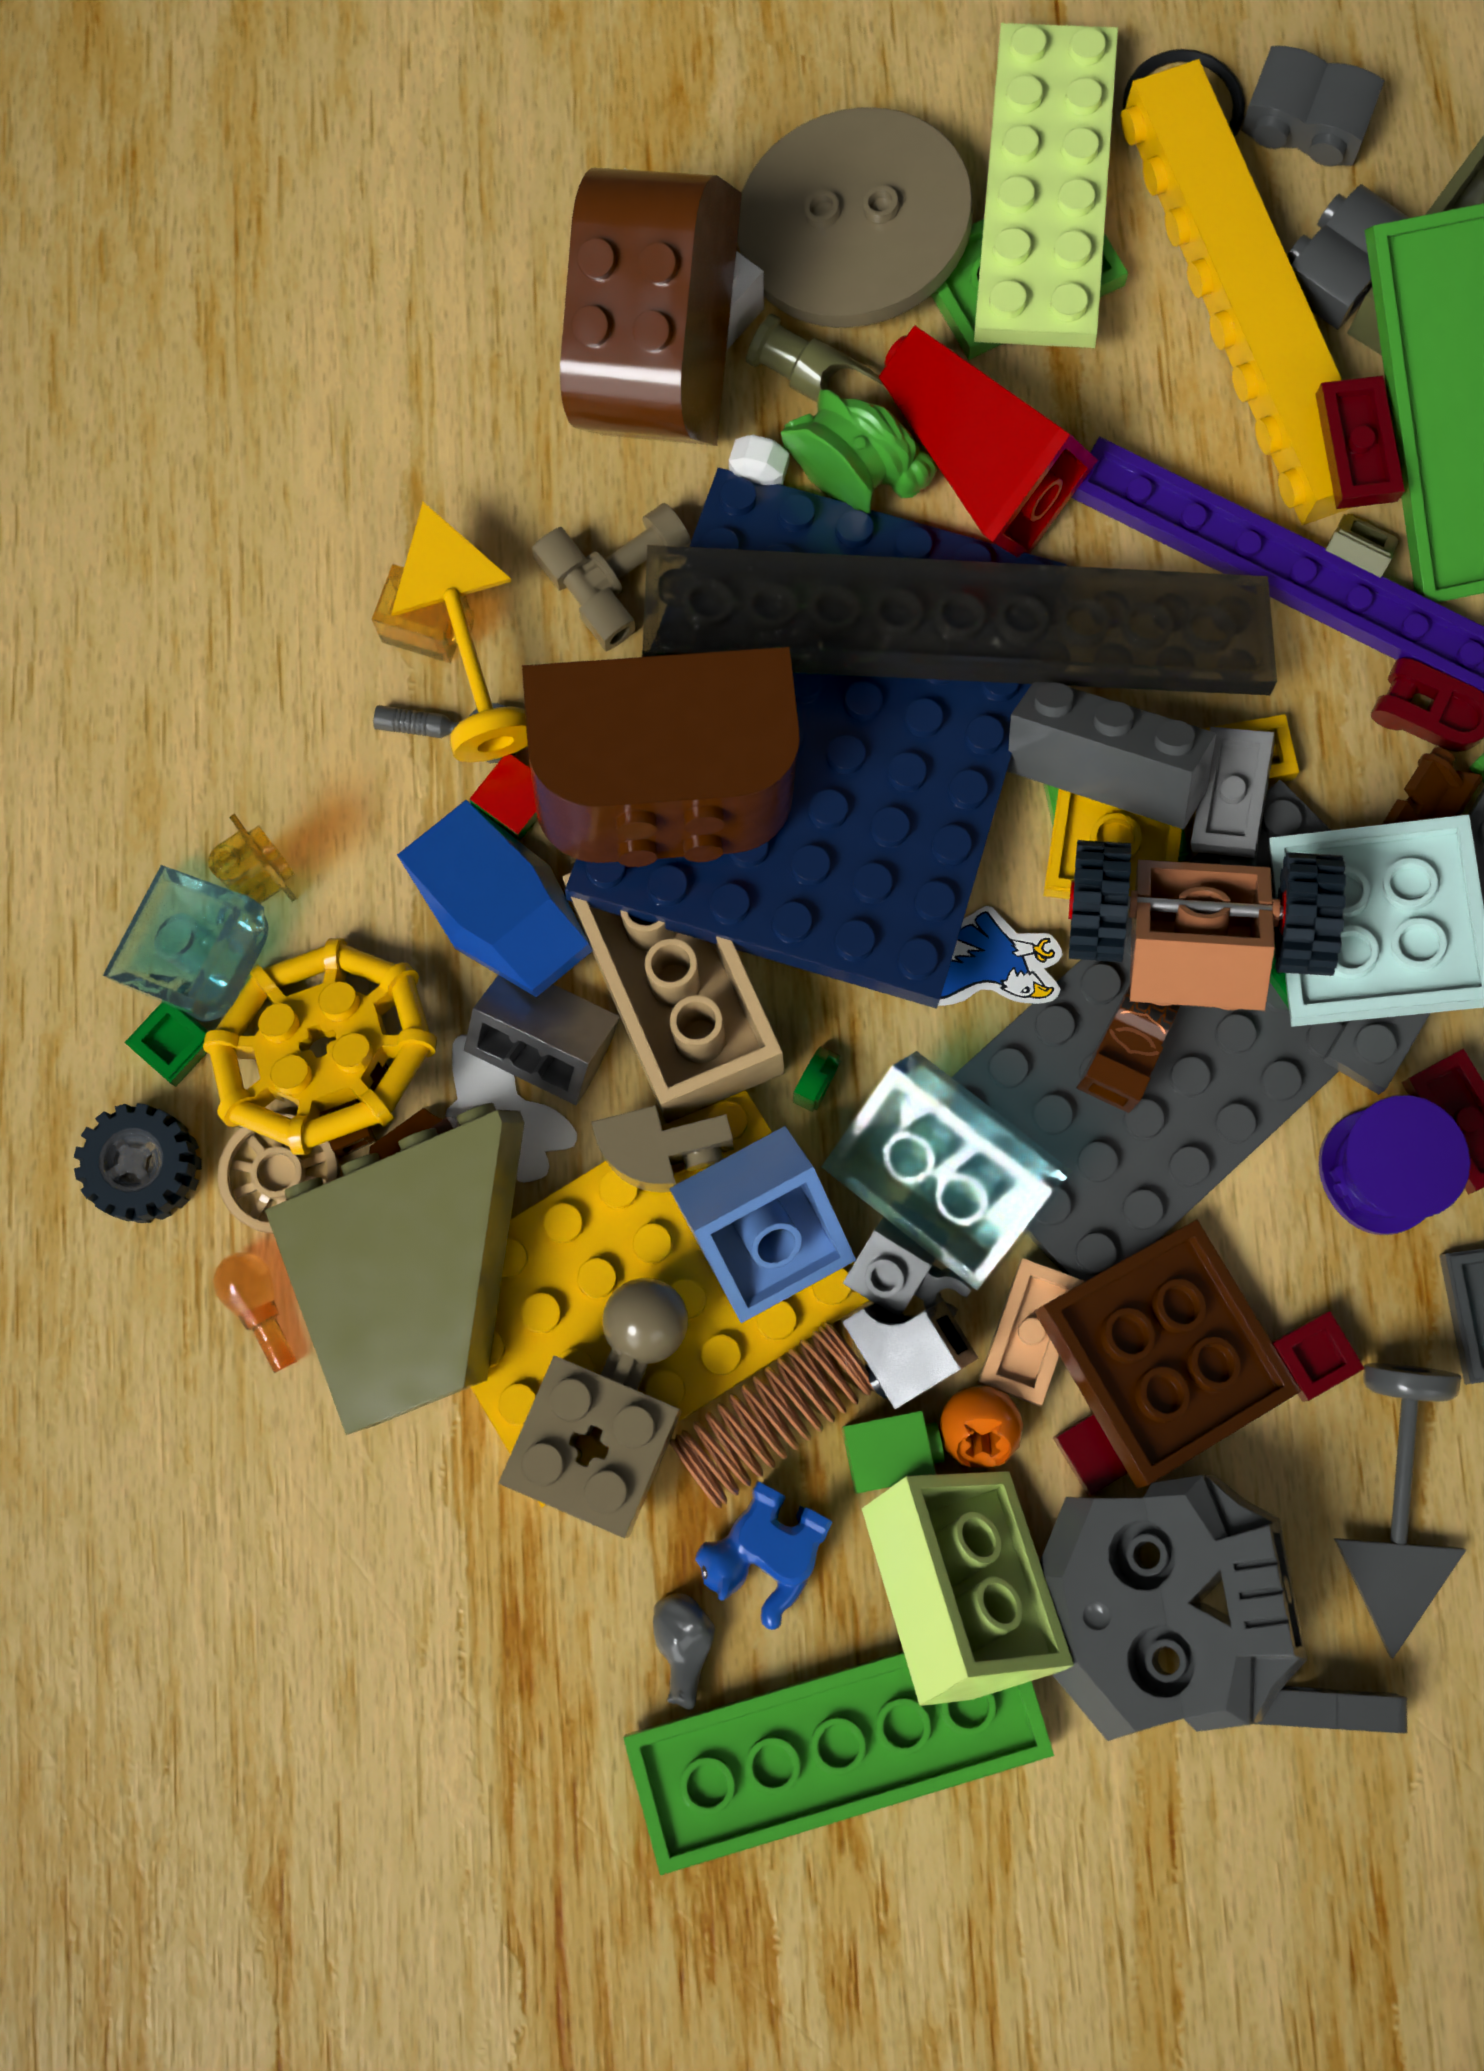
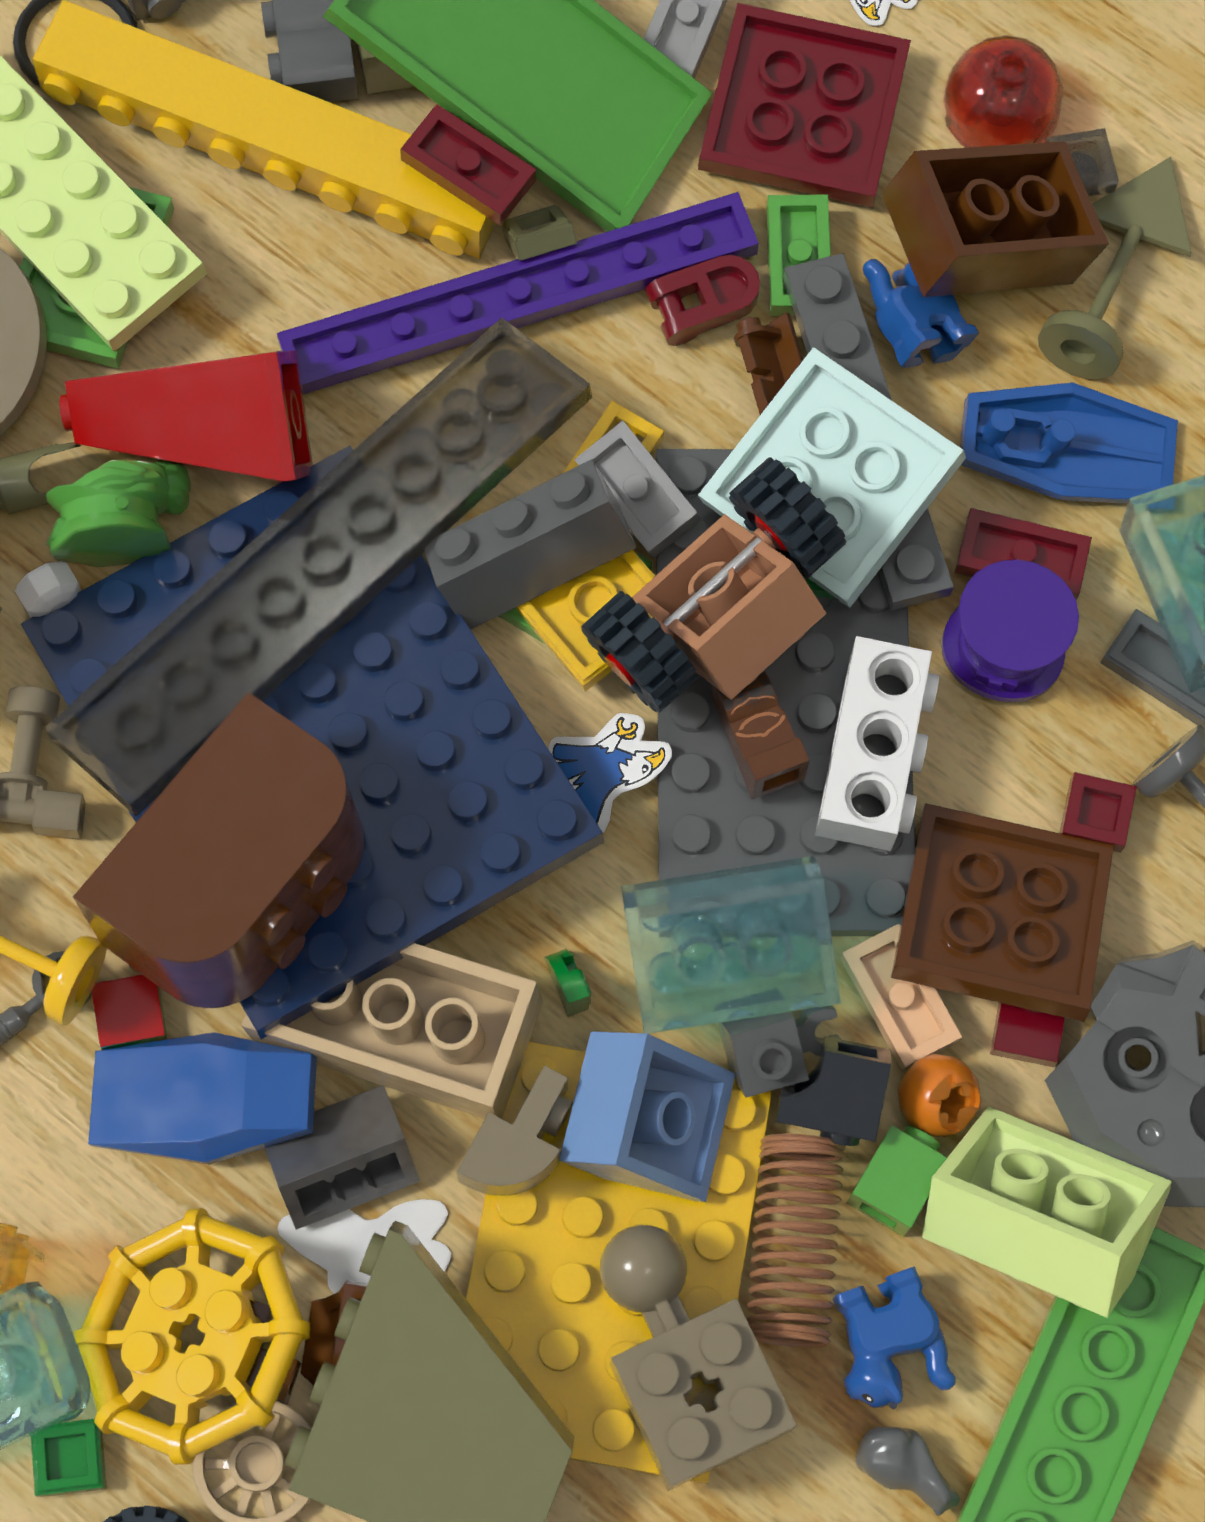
camera: 55 degrees left, 5 degrees down
(1225, 1114) = (857, 770): none -> white brick

